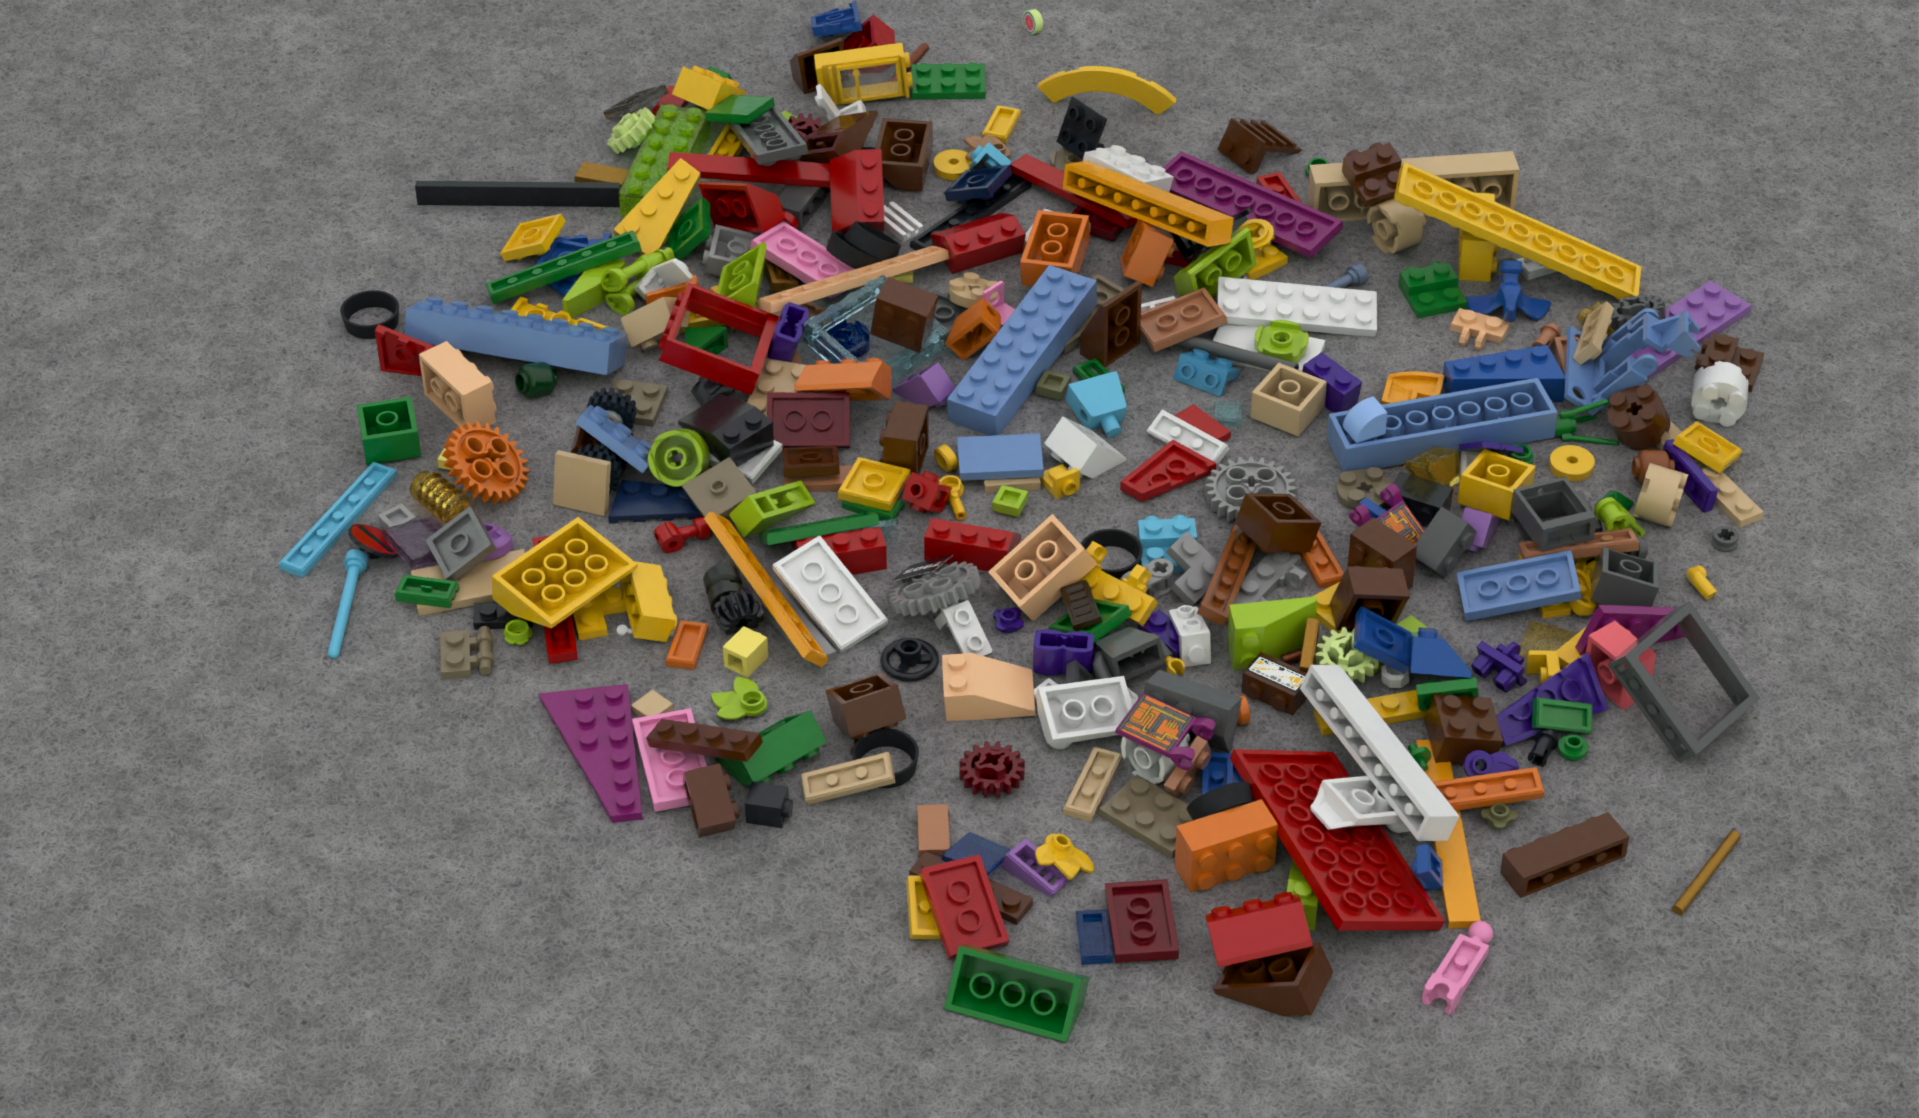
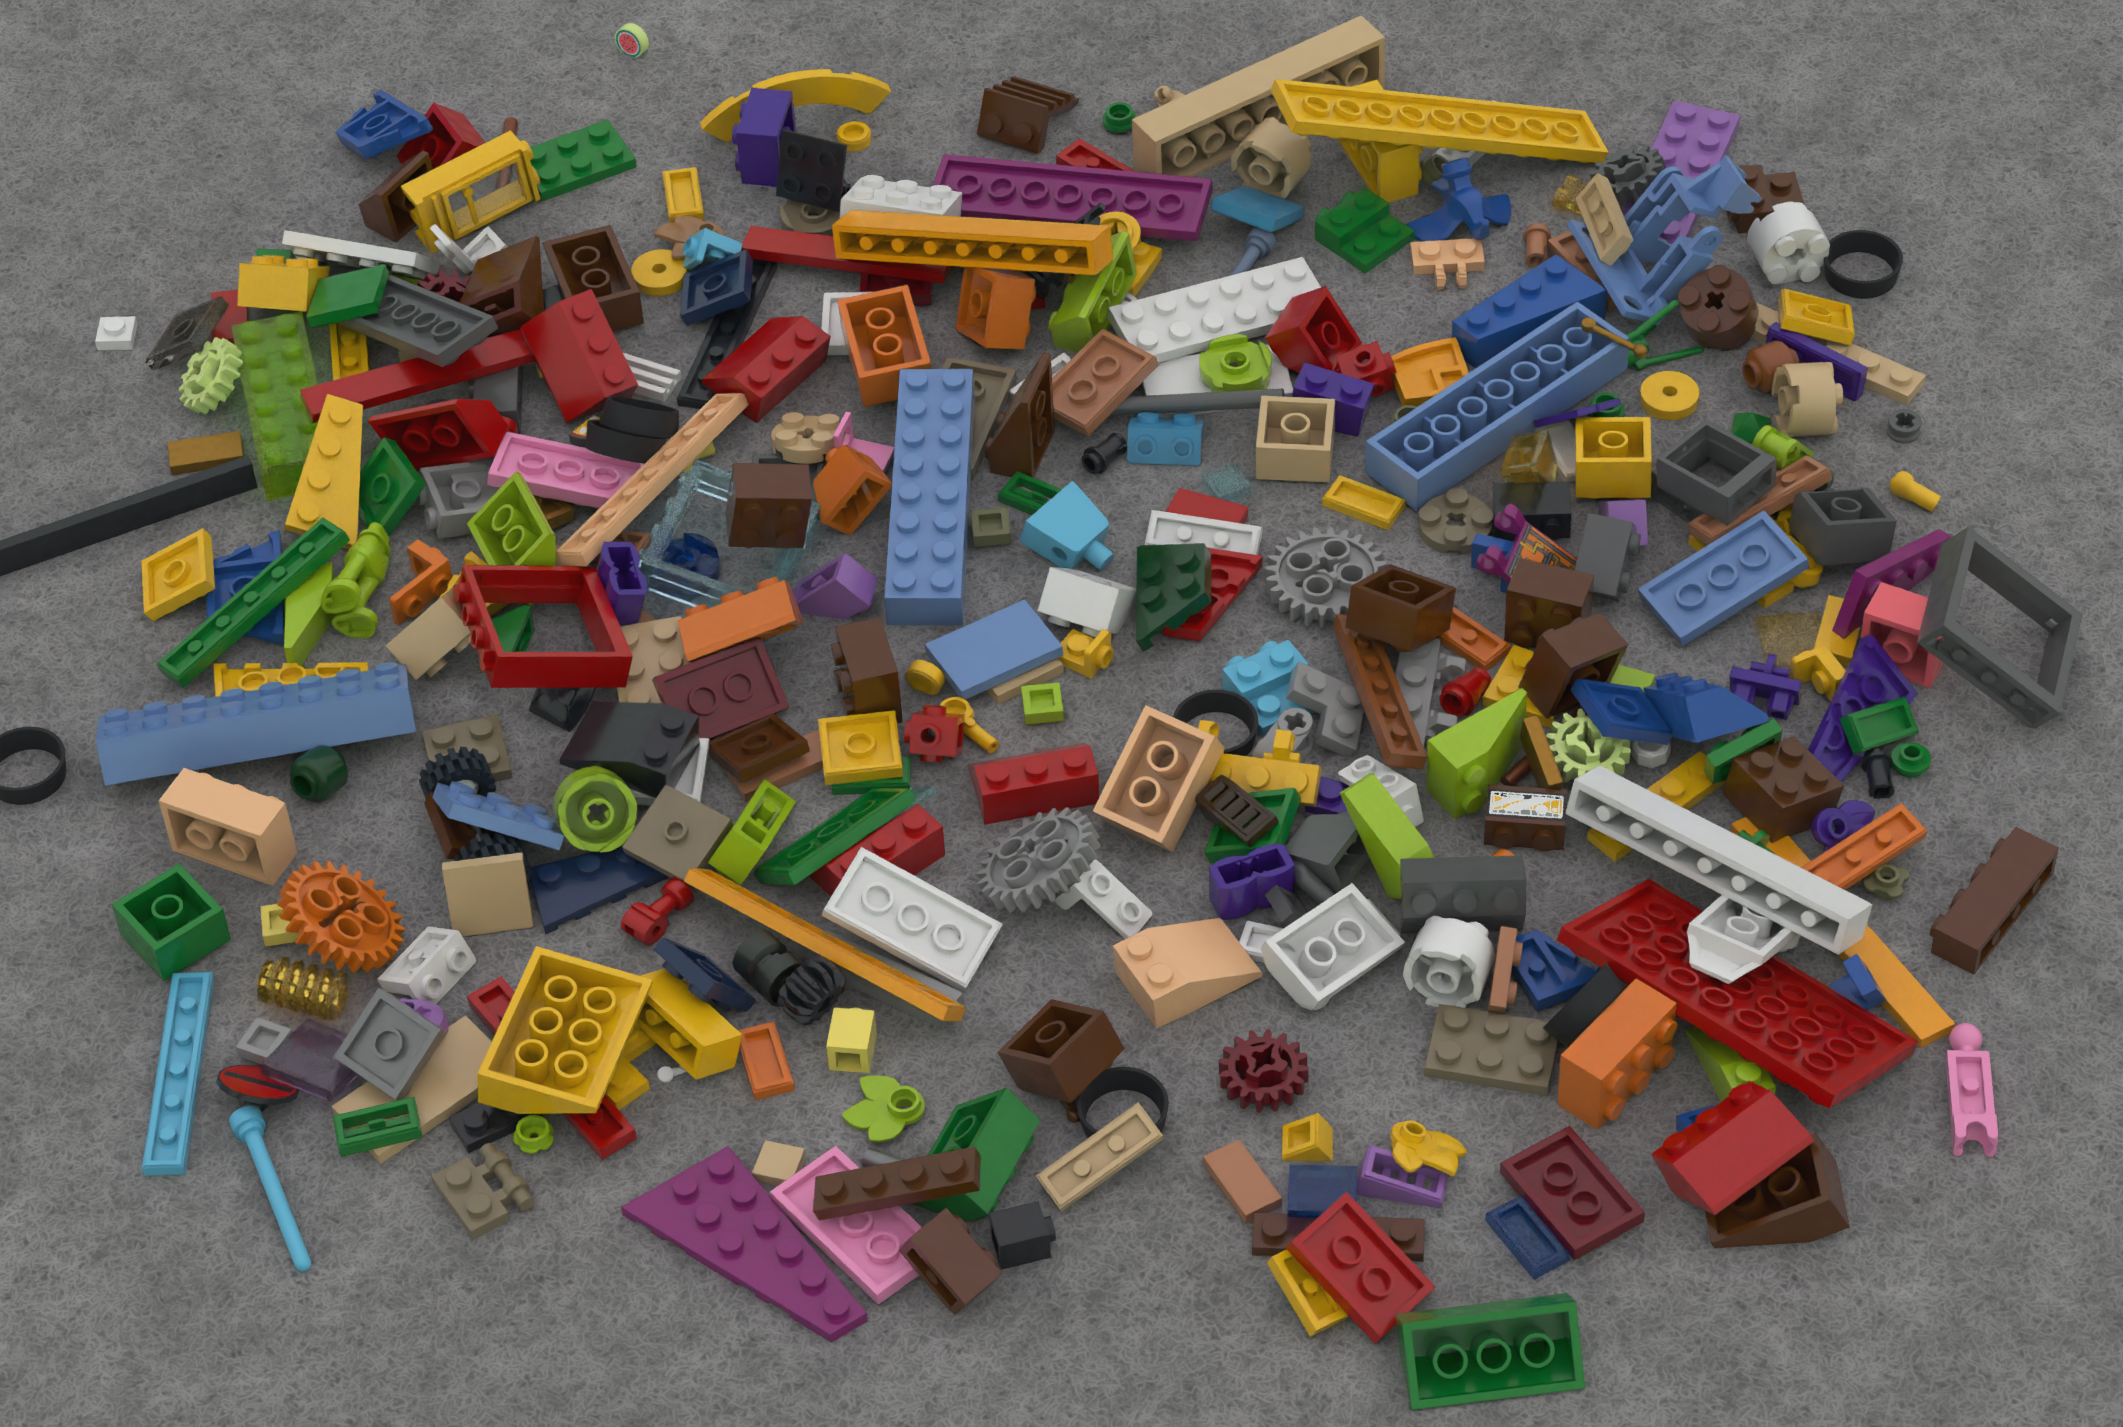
camera: 25 degrees left, 5 degrees up
(399, 352) = (119, 804): red wing -> none
(524, 514) = (429, 965): none -> white bracket
(598, 90) = (116, 333): none -> white plate
(663, 276) = (395, 567): white bracket -> none
(678, 578) = (706, 977): none -> dark blue plate
(767, 89) = (358, 254): none -> white plate
(910, 655) = (1057, 958): black piece -> none
(922, 567) = (1000, 837): black sticker -> none
(994, 823) = (1307, 1139): none -> yellow slope
(1008, 620) = (1146, 871): dark purple plate -> none
(1058, 96) = (760, 134): none -> dark purple brick
(1092, 784) = (1392, 1038): tan tile -> none
(1136, 124) = (854, 135): none -> yellow tile
(1139, 460) = (1170, 587): none -> dark green wing
(1153, 368) = (1097, 458): none -> black pin
(1163, 729) = (1460, 935): flag -> none
(1164, 643) = (1383, 830): none -> lime slope
(1292, 590) = (1464, 692): none -> red cone
(1312, 456) = (1363, 502): none -> yellow tile
(1348, 341) = (1312, 332): none -> red slope
(1366, 420) = (1423, 433): light blue brick -> none
(1368, 252) = (1257, 208): none -> dark azure tile
(1370, 372) = (1370, 365): none -> red brick
(1373, 172) = (1225, 104): reddish brown plate -> none
(1533, 394) = (1589, 325): none -> pearl gold hinge
(1774, 411) = (1864, 242): none -> black tyre

